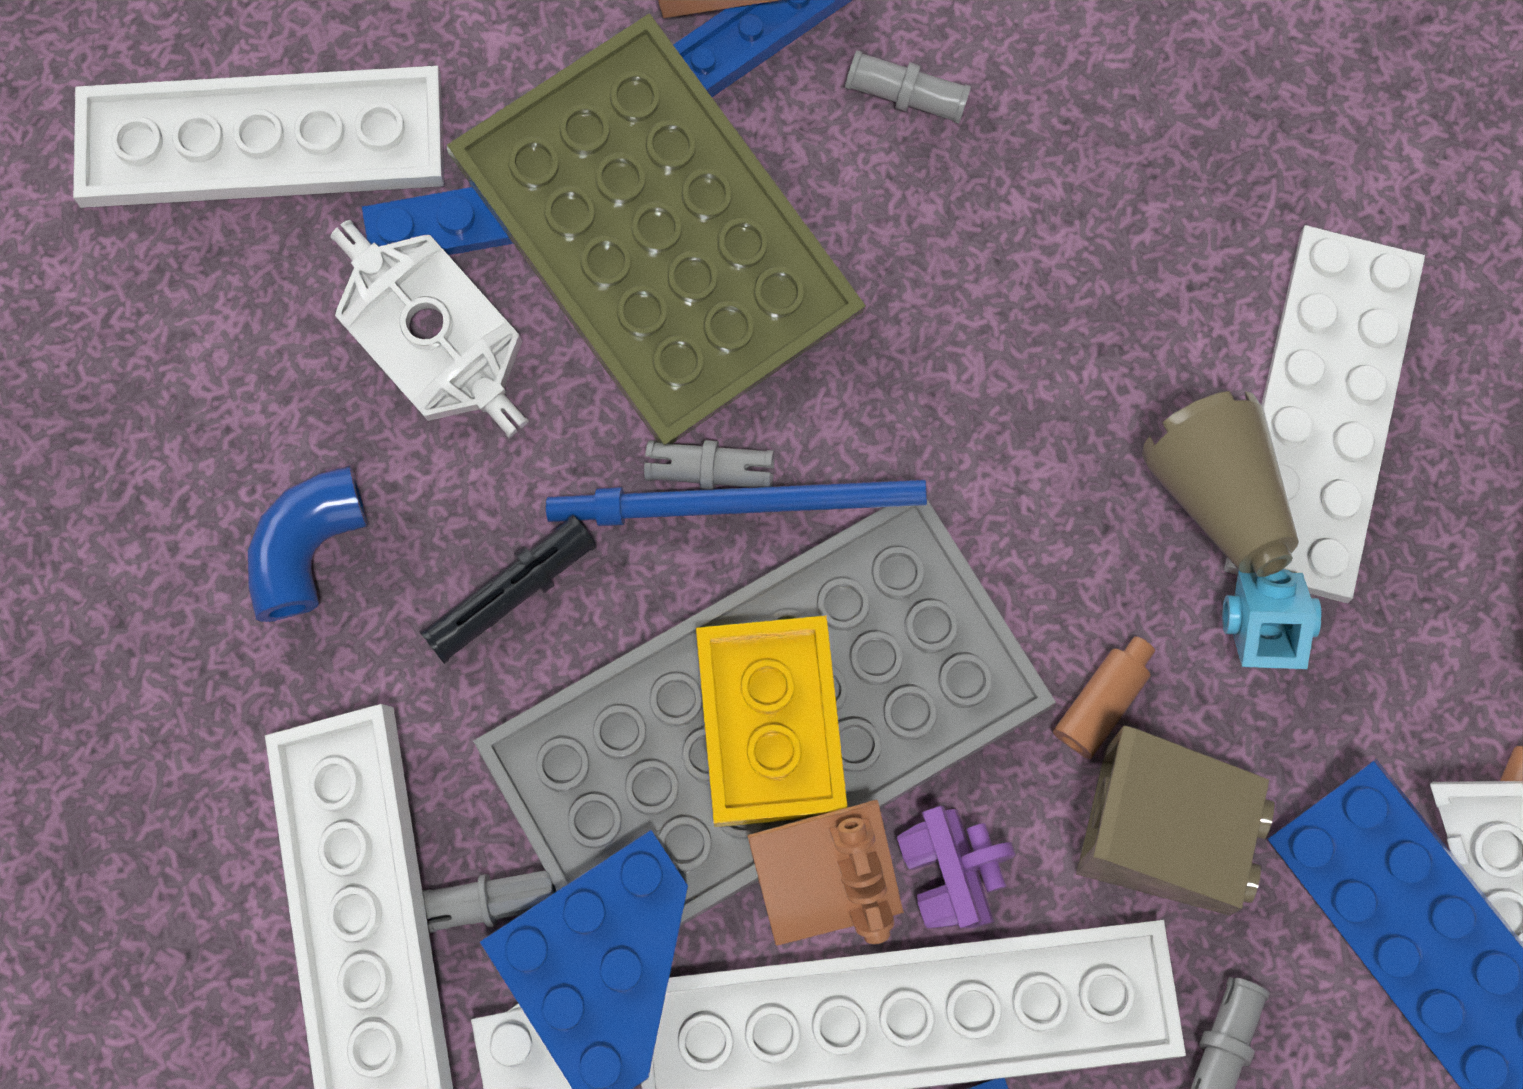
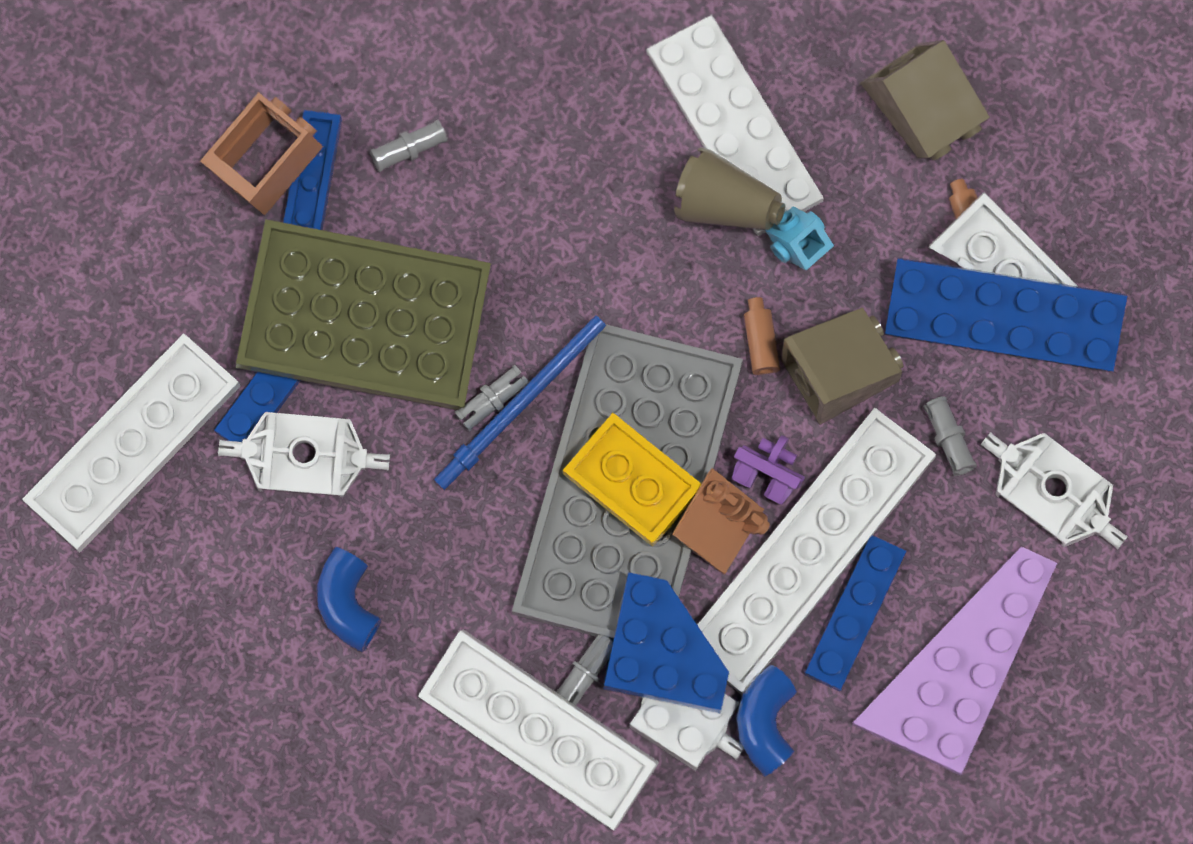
camera: 40 degrees left, 0 degrees up
(531, 570) = (464, 490): black pin -> none

